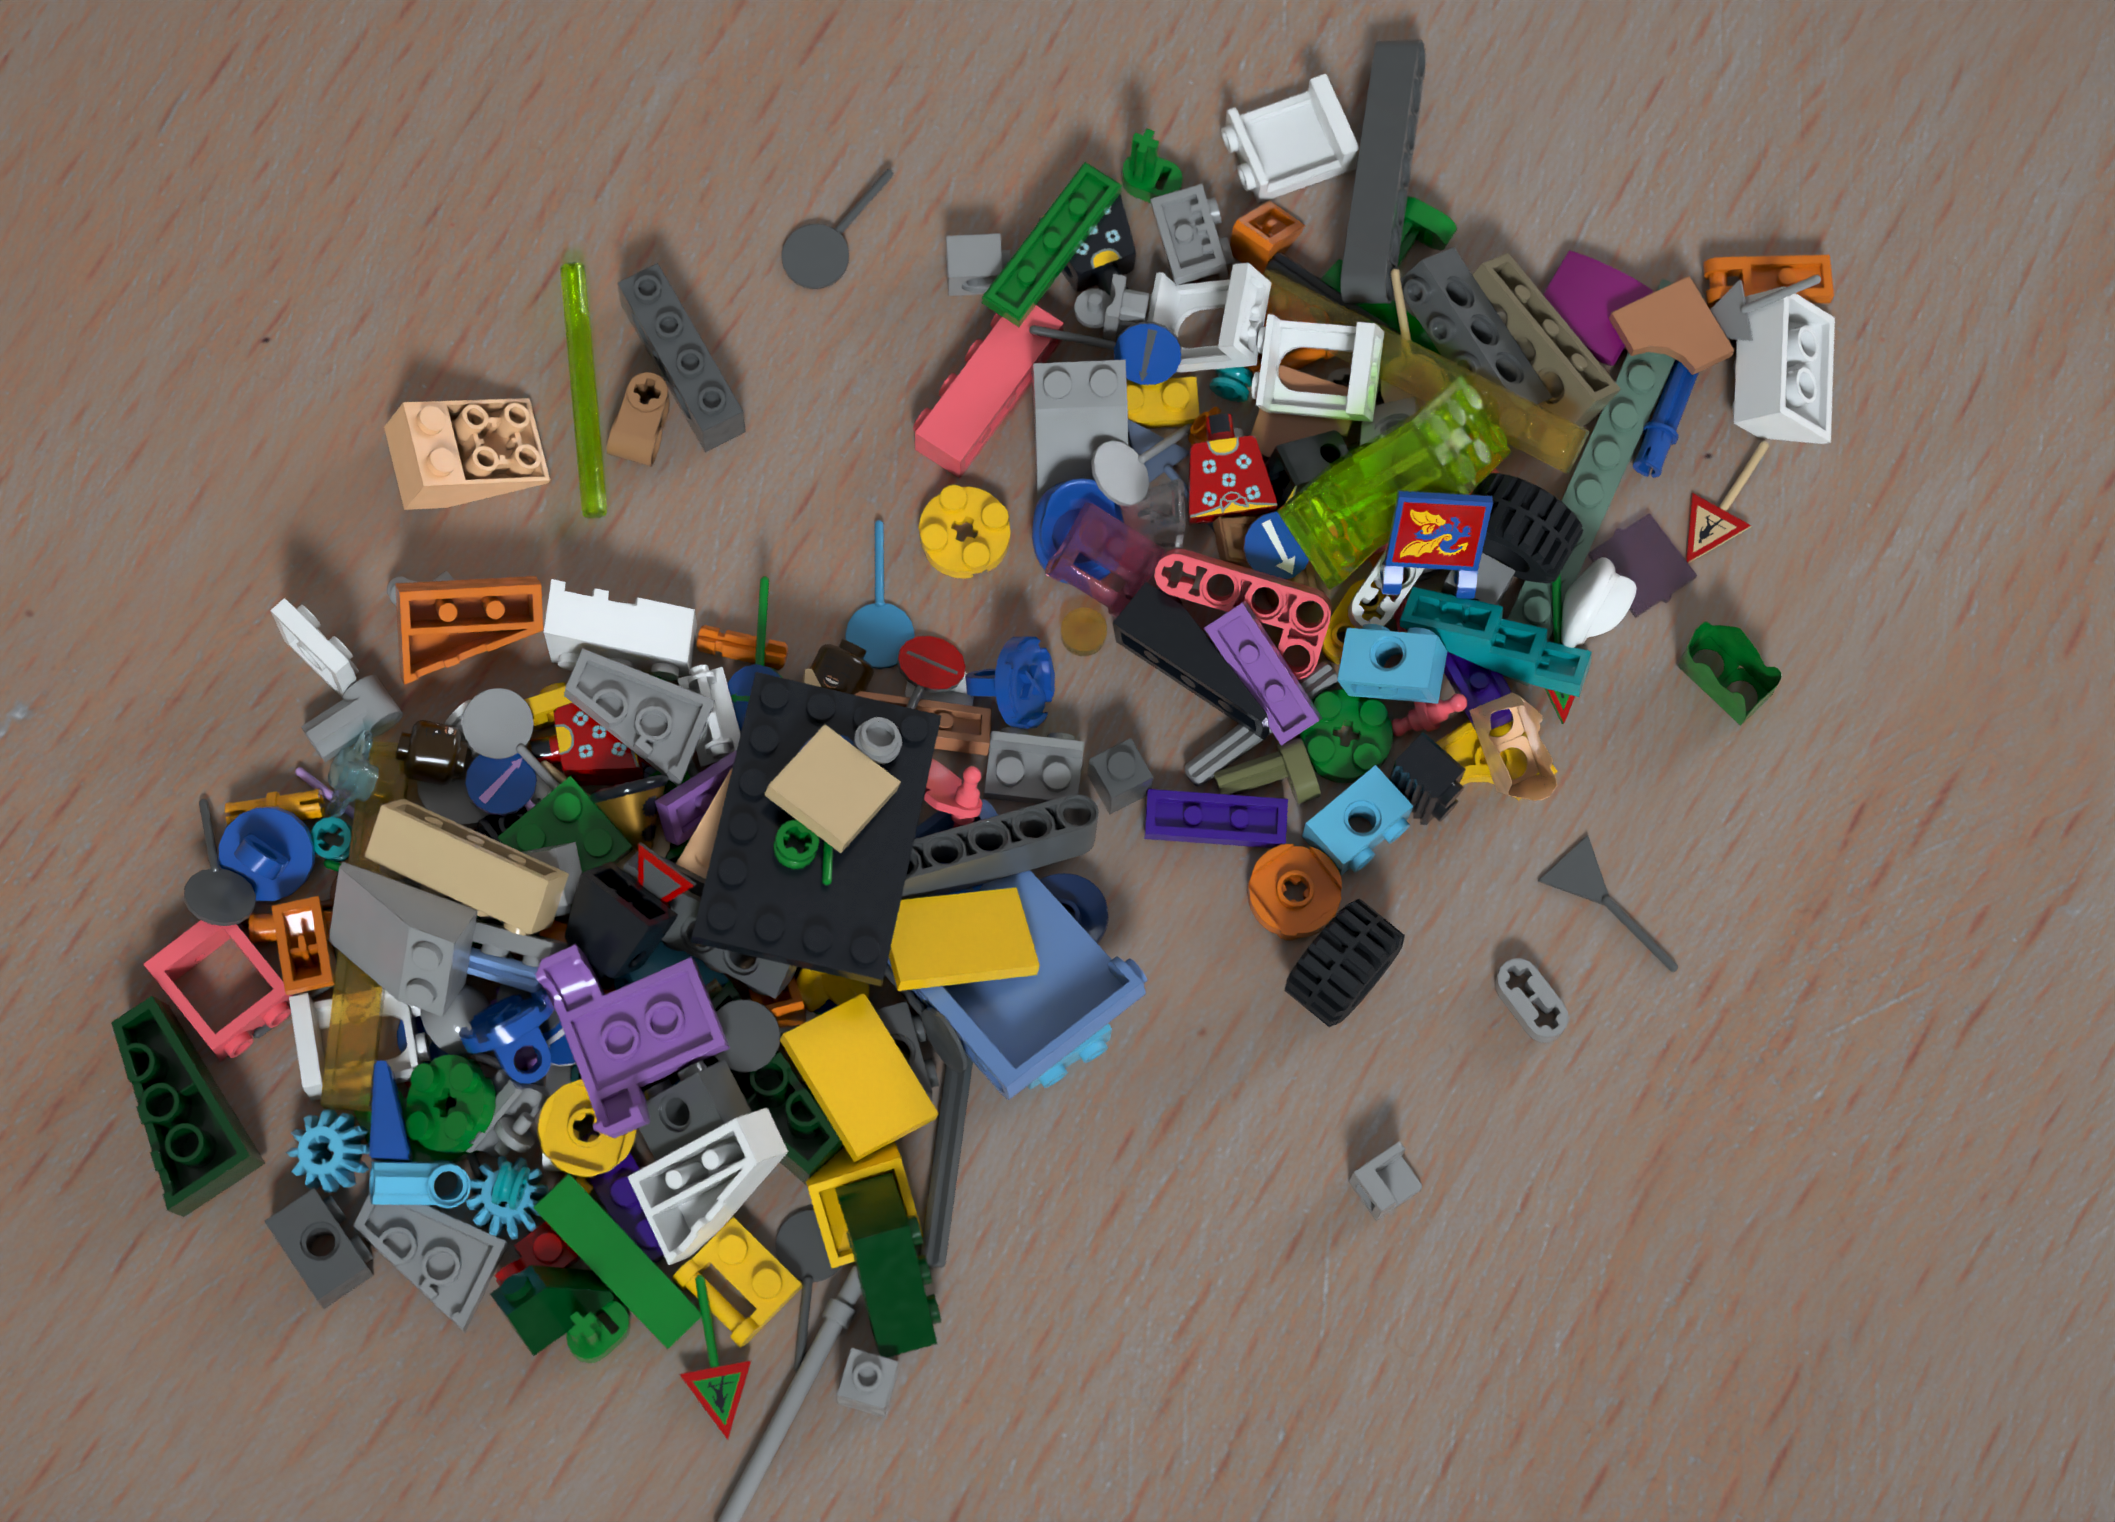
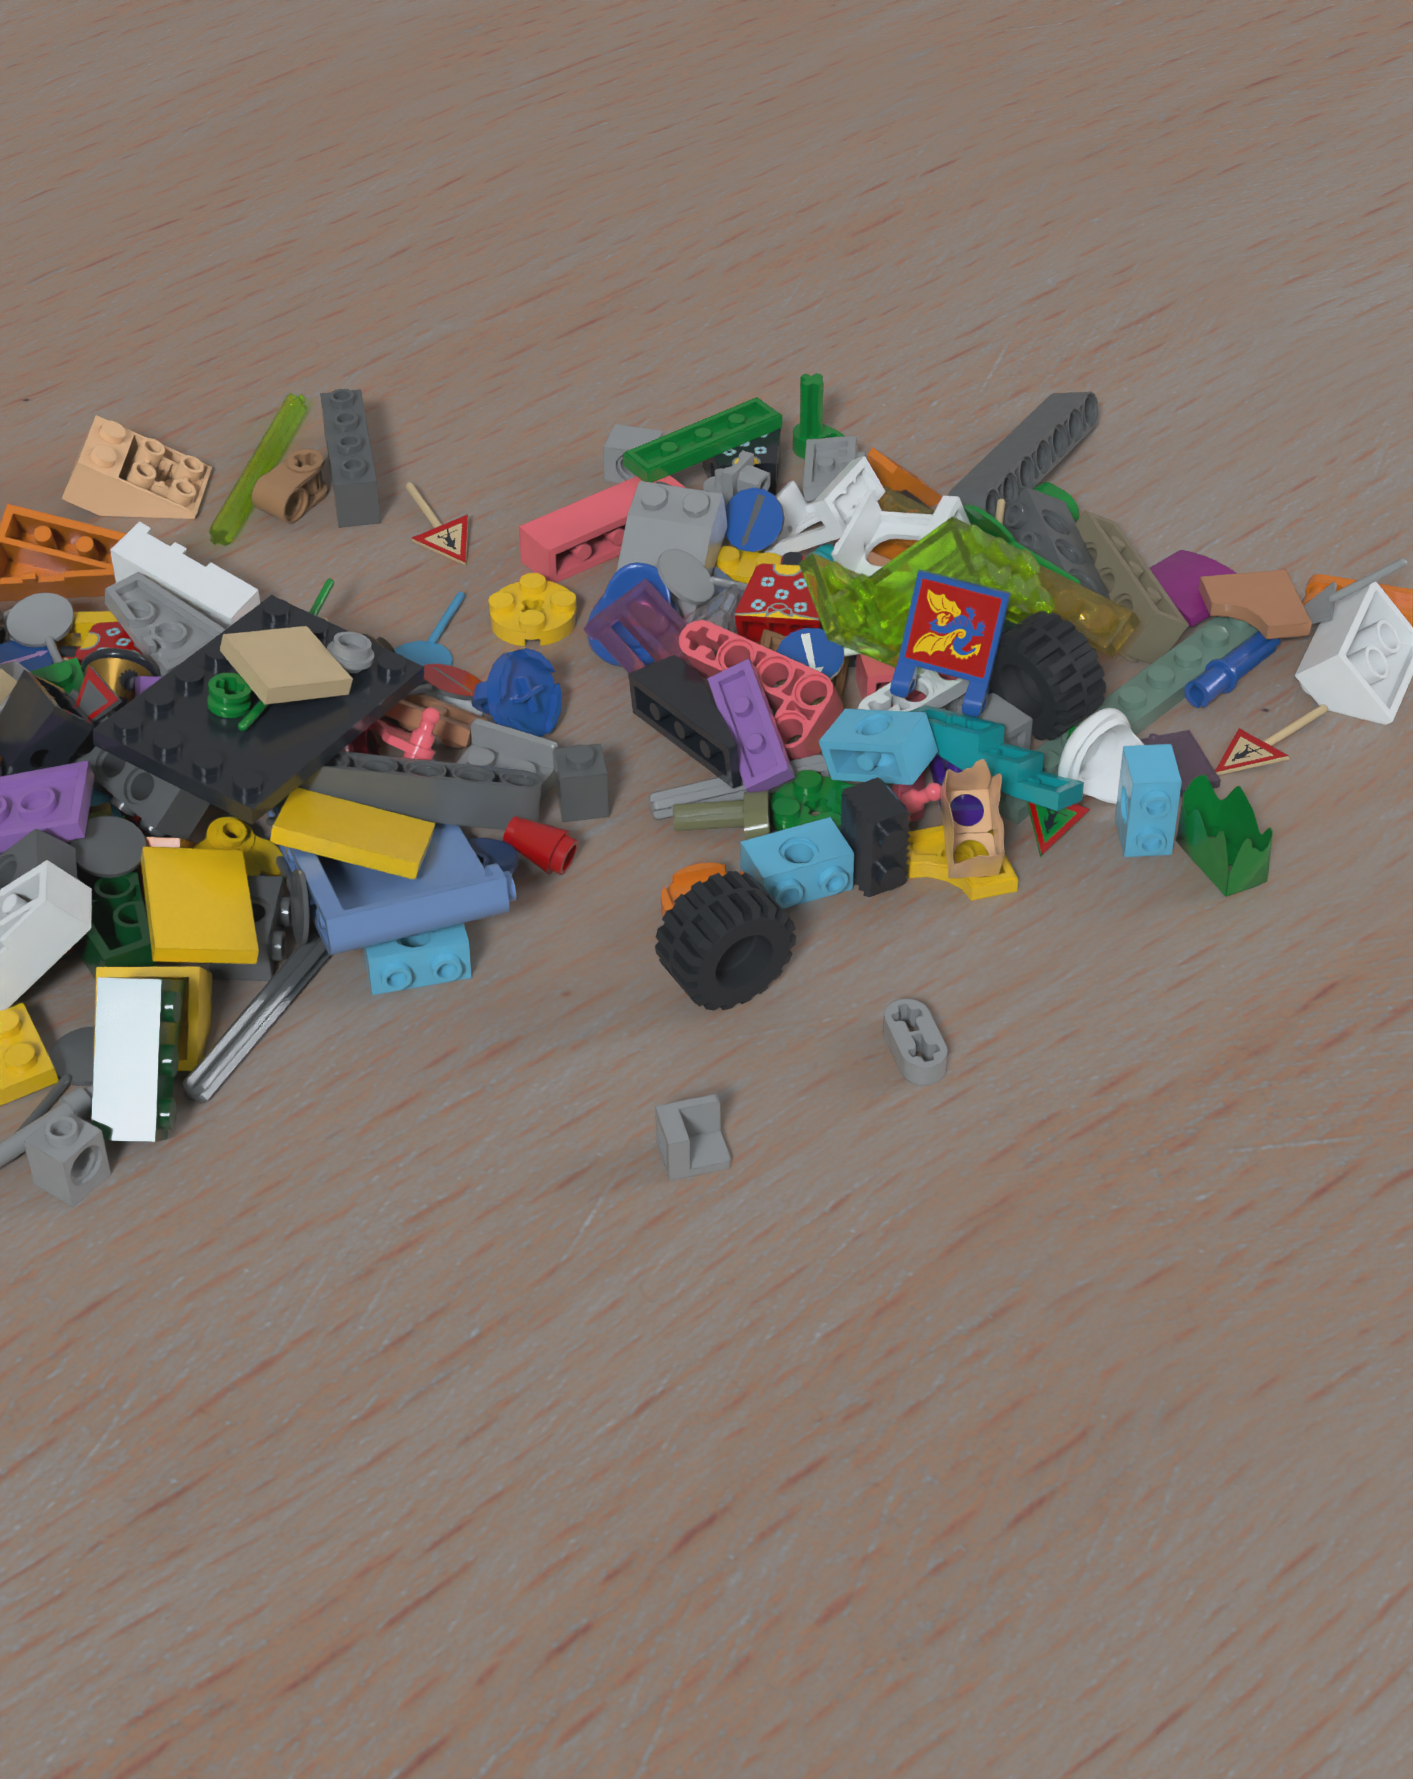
camera: 25 degrees right, 30 degrees down
(818, 254) = (513, 434): dark grey piece -> none
(825, 439) = (444, 539): none -> piece
(1083, 631) = (605, 695): clear yellow tile -> none
(1116, 868) = (542, 844): none -> red cone
(1215, 818) = (657, 835): dark purple plate -> none
(1292, 142) = (948, 445): white panel -> none
(1420, 340) = (993, 527): none -> green piece
(1581, 876) = (1014, 968): dark grey piece -> none
(1654, 654) = (1147, 800): none -> medium azure brick

